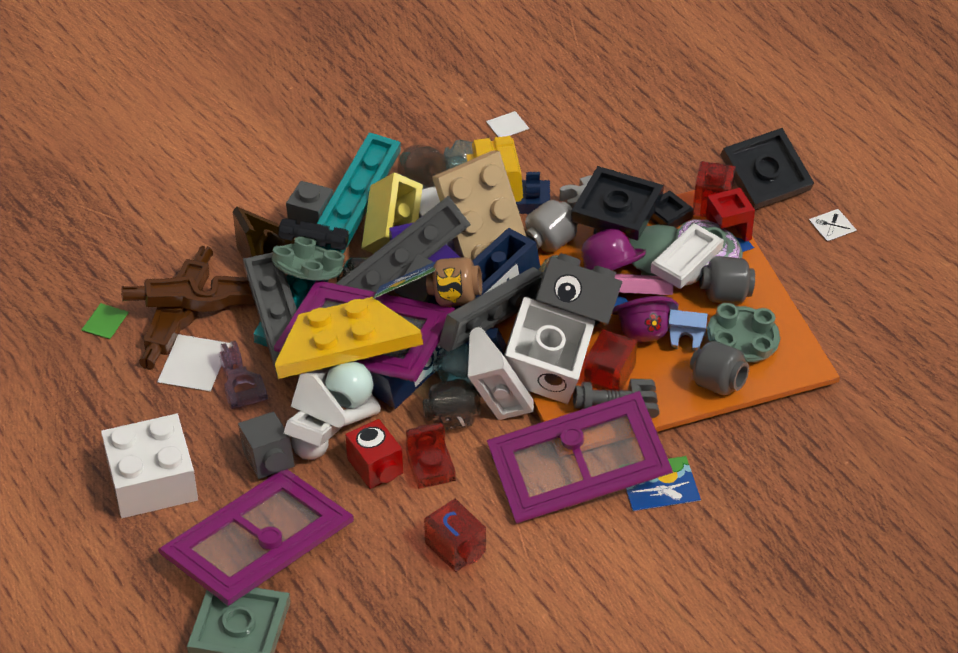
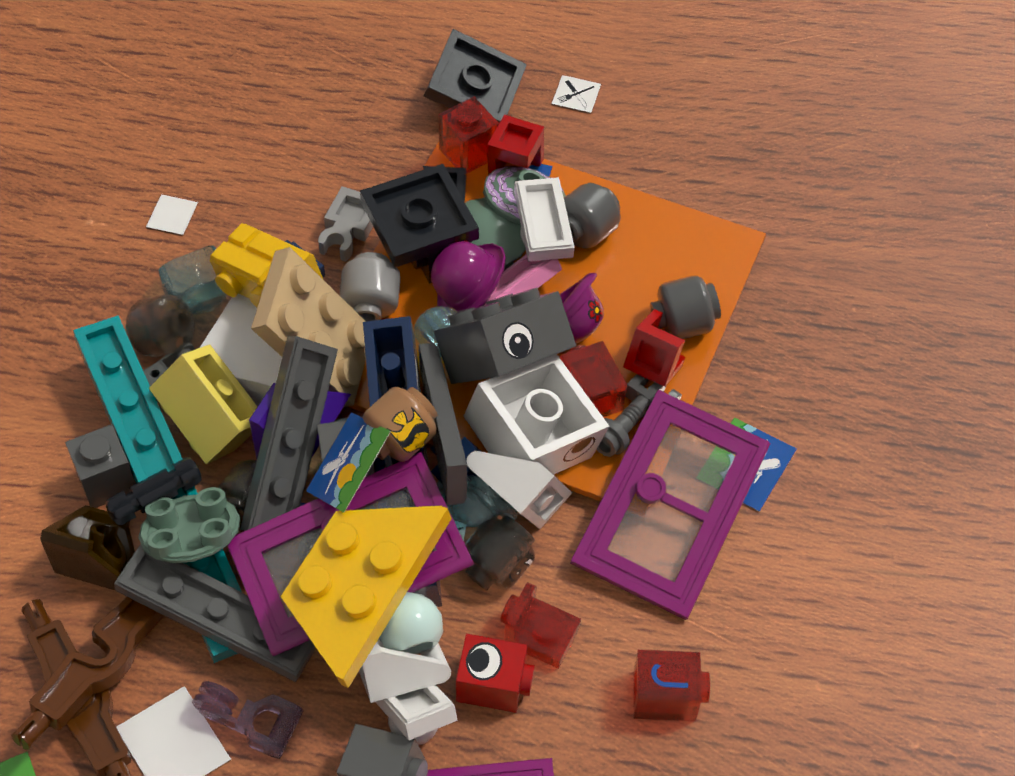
camera: 50 degrees left, 10 degrees up
(664, 371) = (654, 351): none -> red panel
(689, 324) = (616, 285): light blue tile -> none
(746, 330) = (654, 254): sand green dish -> none

